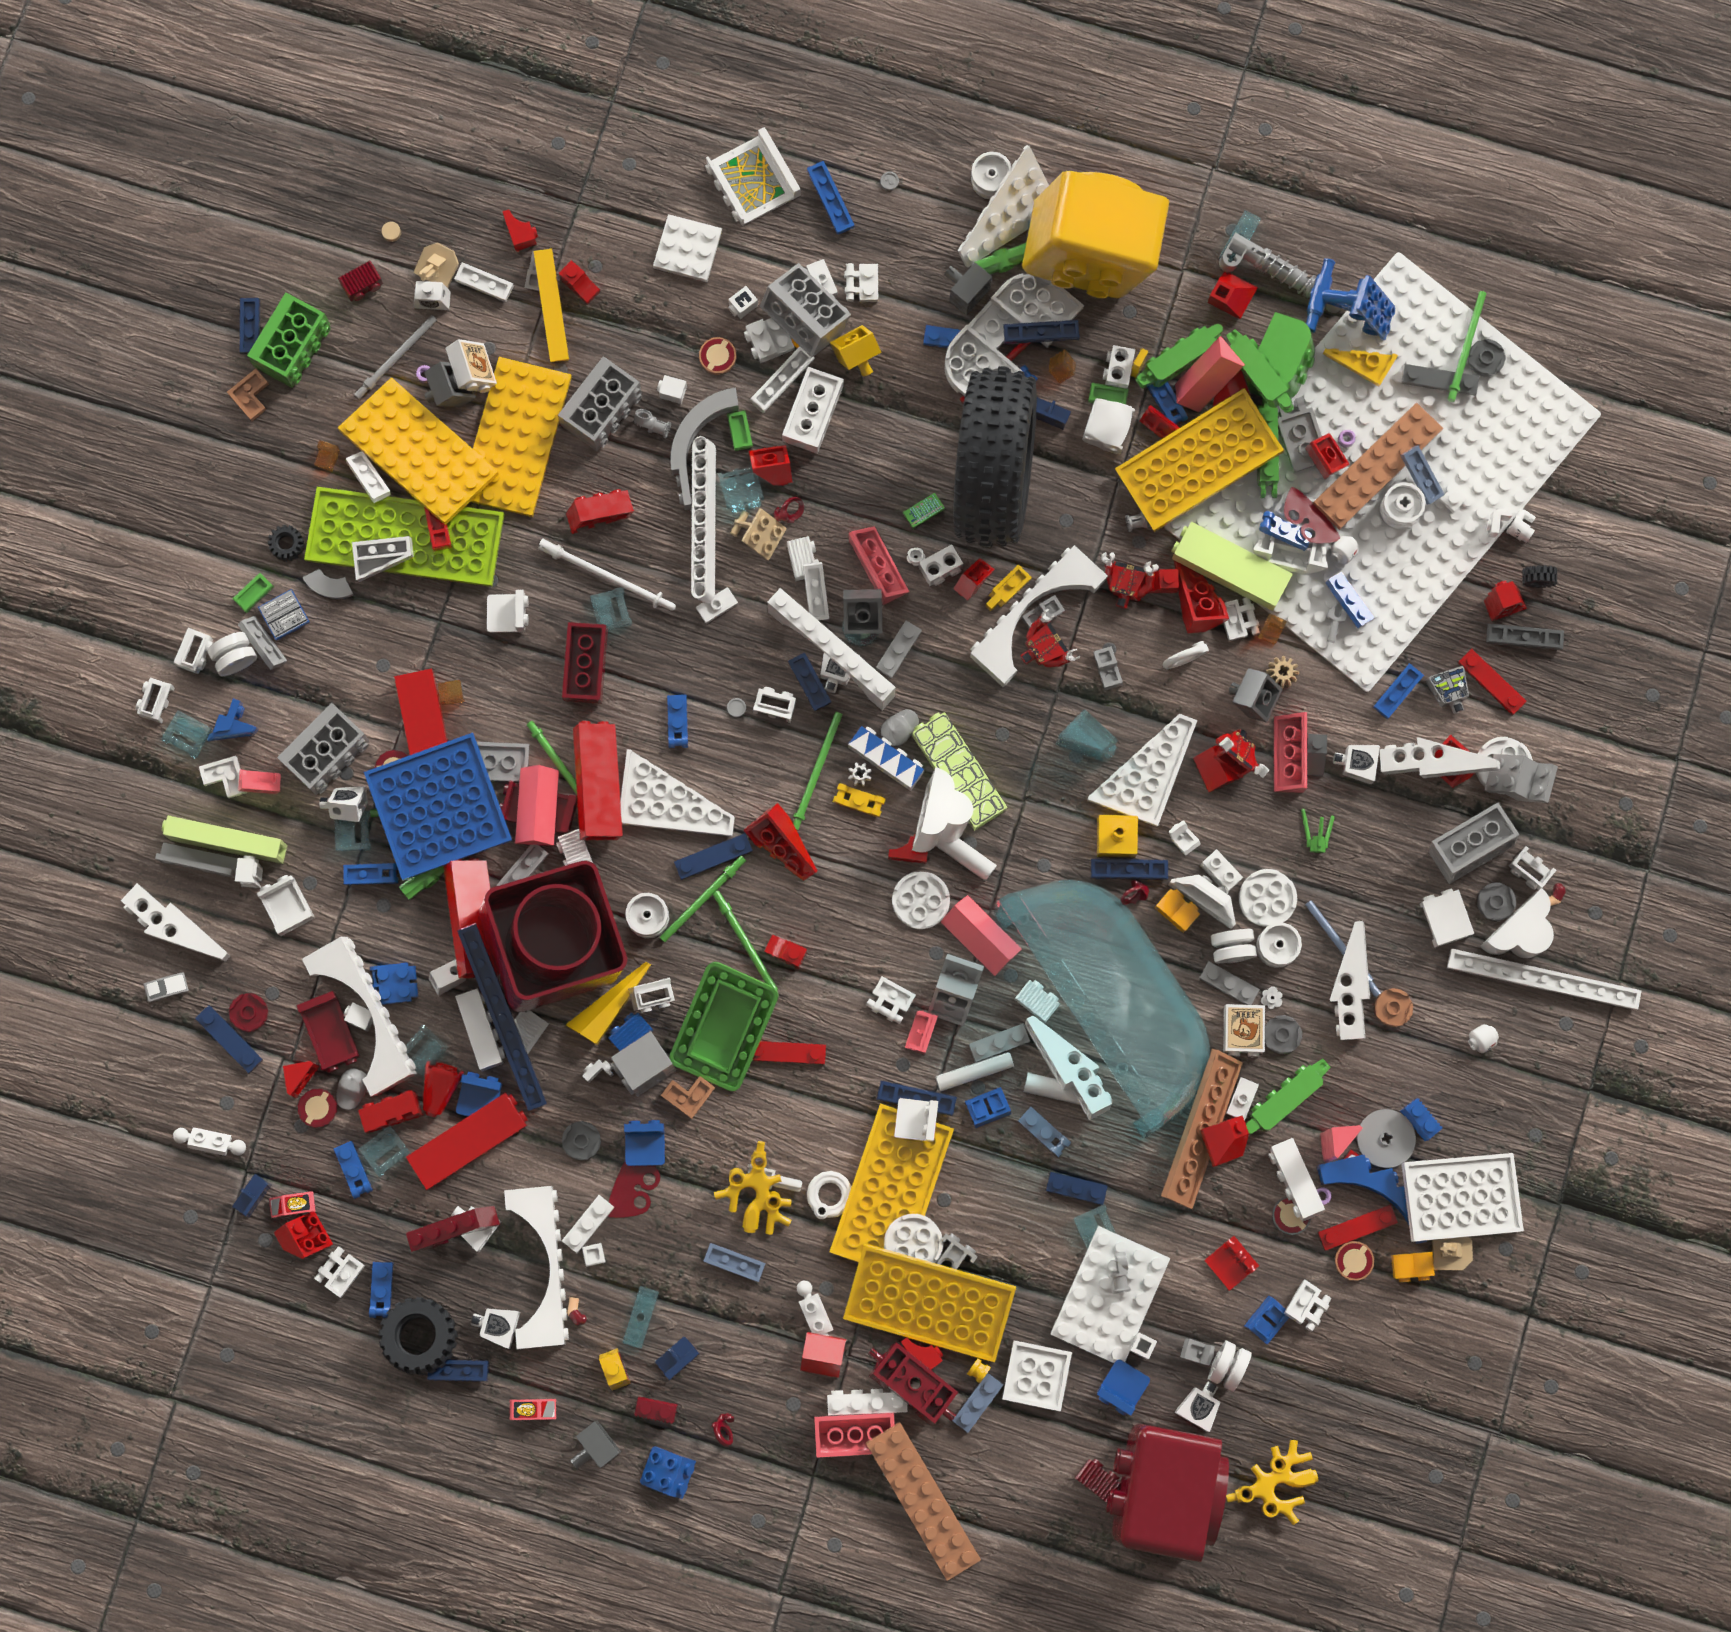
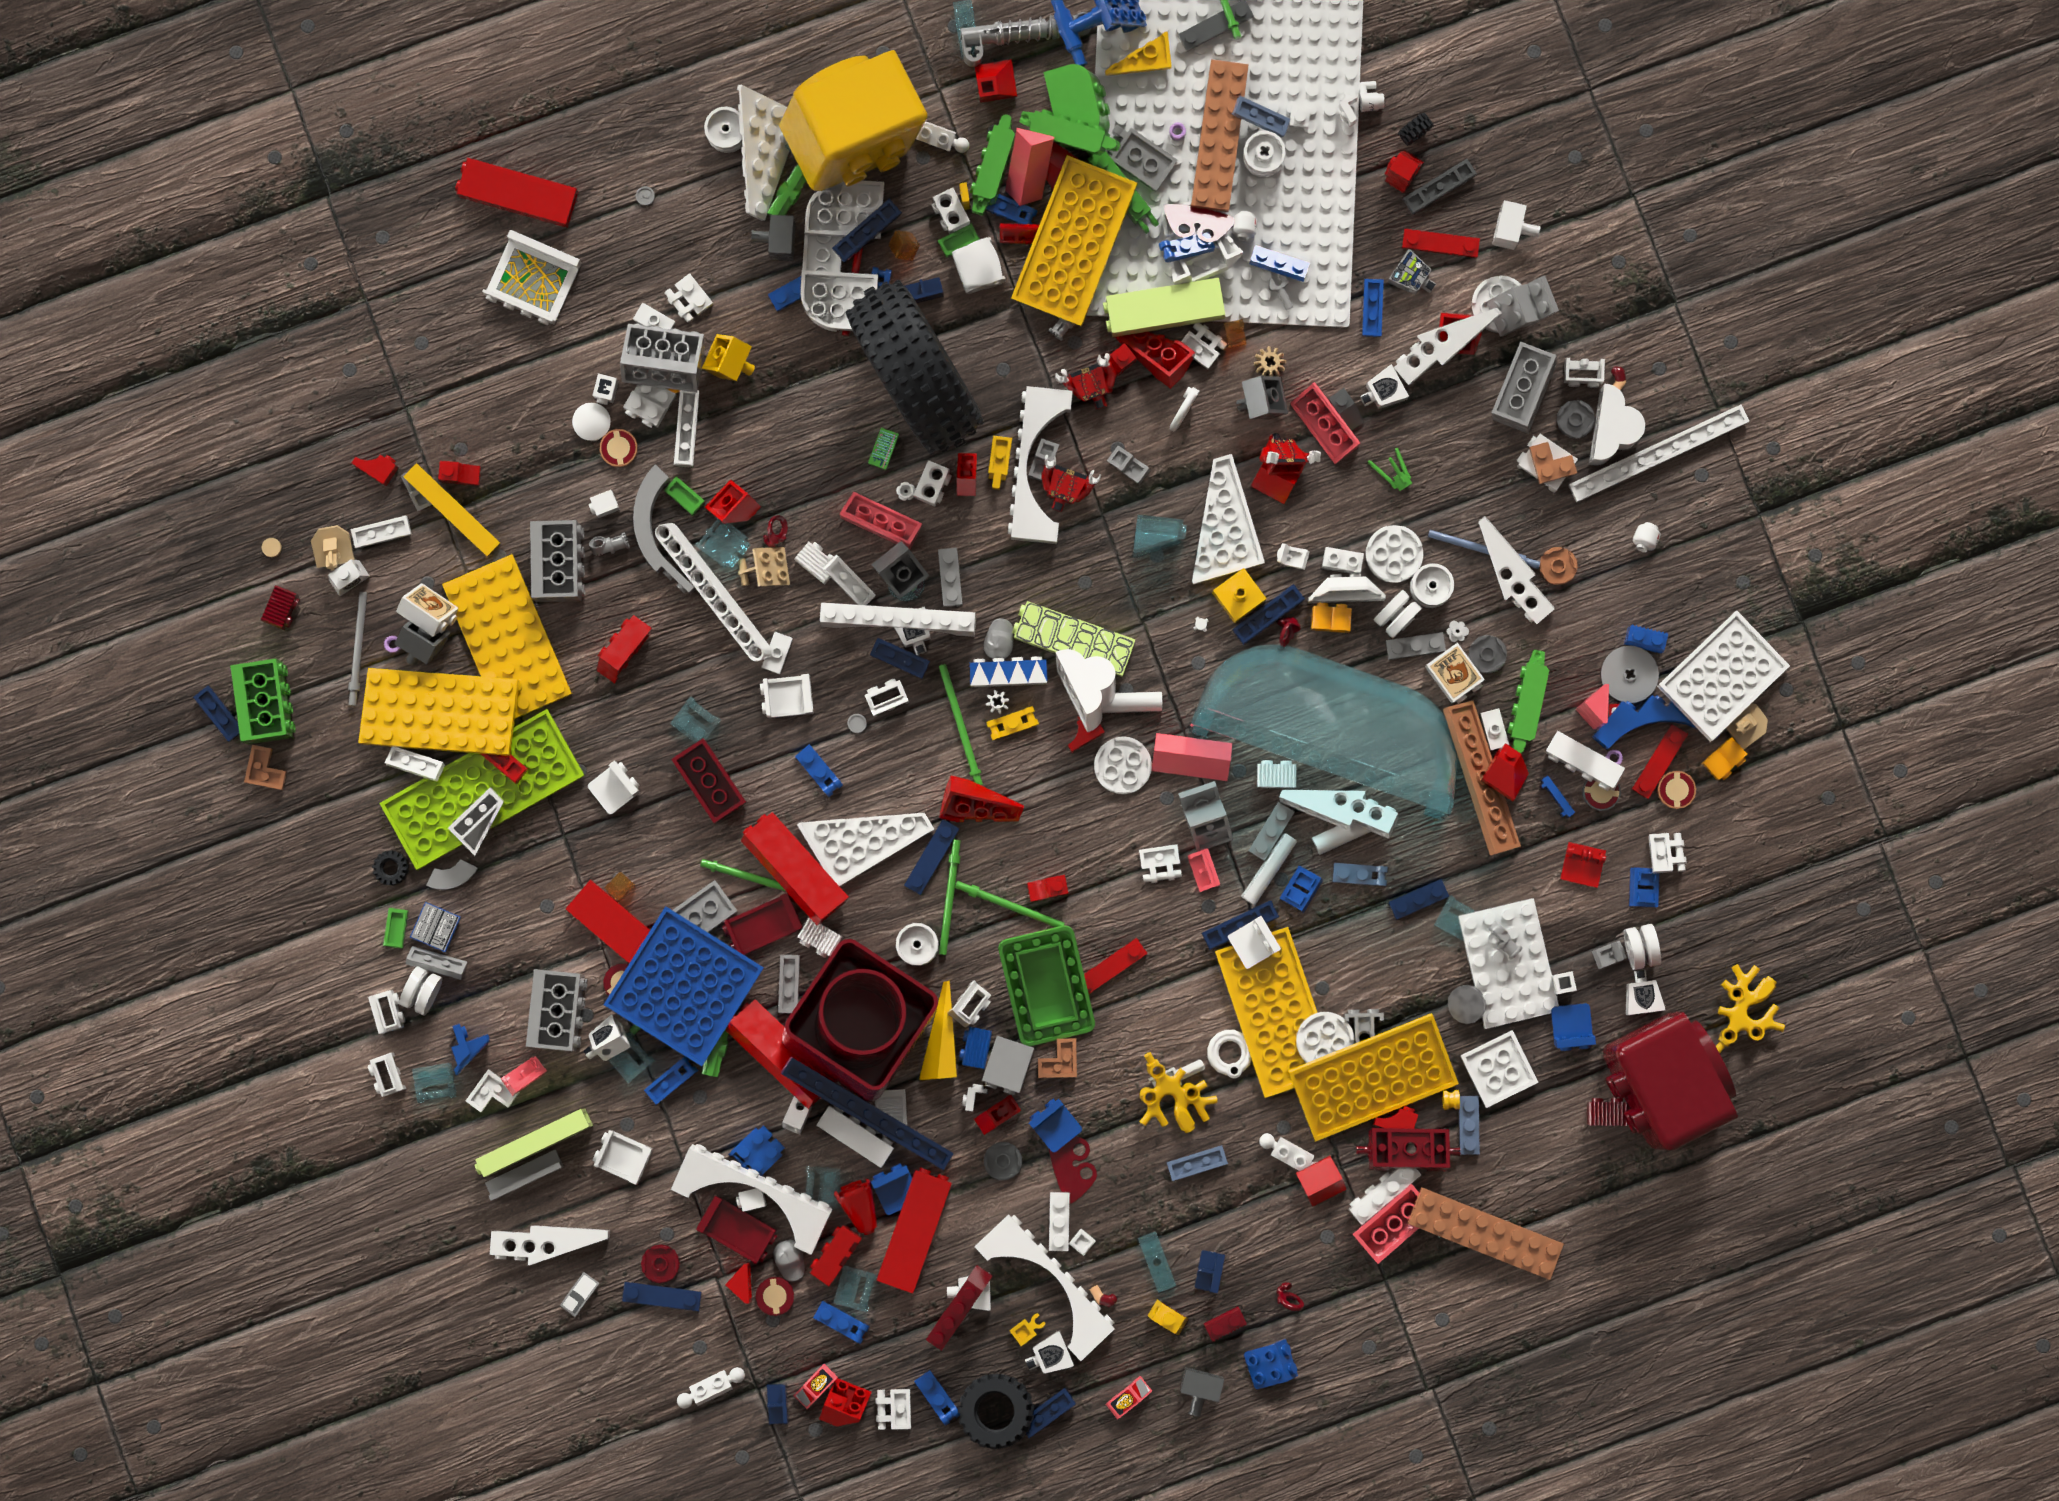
camera: 30 degrees left, 5 degrees up
(249, 872) = (573, 1153): white window -> none
(327, 455) = (366, 772): clear orange panel -> none
(492, 1290) = (1025, 1331): none -> yellow plate
(537, 805) = (761, 924): coral slope -> none
(558, 552) = (616, 707): white bar -> none
(605, 1099) = (997, 1114): none -> red arch
(687, 248) = (524, 377): white plate -> none
(697, 645) = (787, 696): none -> white panel
(712, 320) = (591, 421): none -> white dish
(792, 104) = (516, 192): none -> red brick
(806, 399) = (719, 429): white brick -> none
(830, 197) = (608, 247): blue plate -> none
(1050, 1302) = (1466, 1004): none -> flat silver tile
(1069, 836) = (1201, 624): none -> white piece
(1154, 305) = (942, 138): none -> white plate
(1252, 1175) = (1557, 796): none -> blue piece
(1326, 455) = (1173, 158): red slope -> none
(1444, 922) = (1550, 469): none -> nougat plate
(1560, 709) = (1511, 226): none -> white brick

